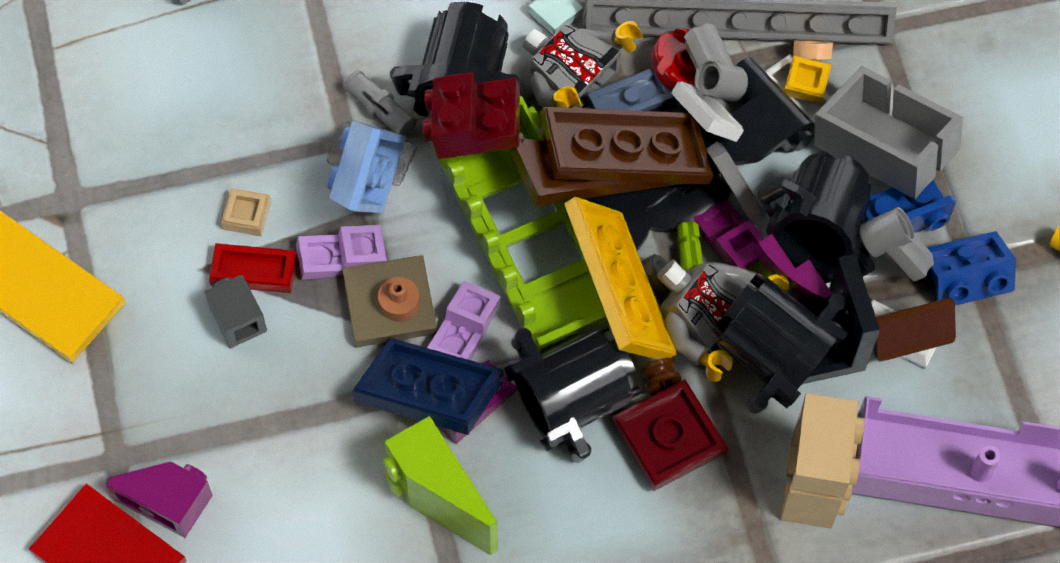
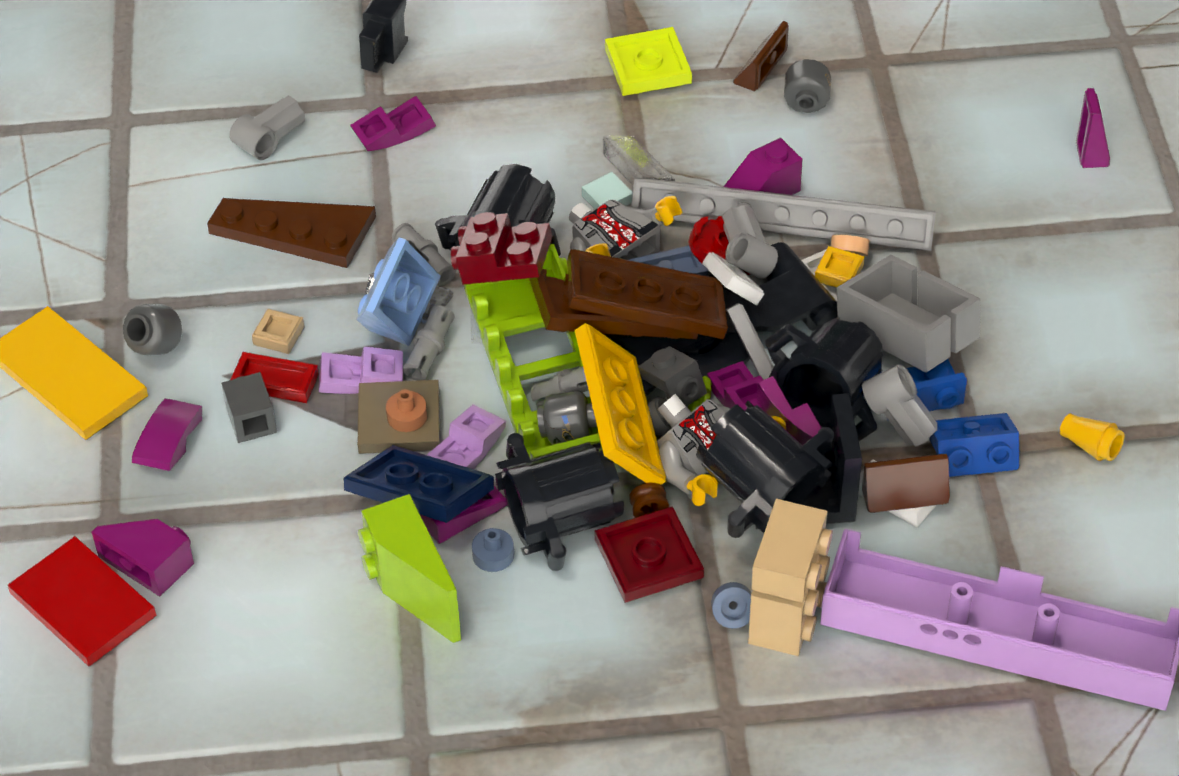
camera: 10 degrees right, 15 degrees down
(117, 231) = (152, 329): none -> dark grey head
(155, 351) = (165, 434): none -> magenta slope
(245, 84) = (298, 228): none -> reddish brown wing
(405, 211) = (428, 342): none -> light grey pin
(512, 446) = (492, 550): none -> sand blue tile
(555, 255) = (564, 381): none -> light grey pin
(565, 294) = (565, 417): none -> dark grey head
(664, 230) = (674, 374): none -> dark grey bracket
(763, 485) = (732, 605): none -> sand blue tile

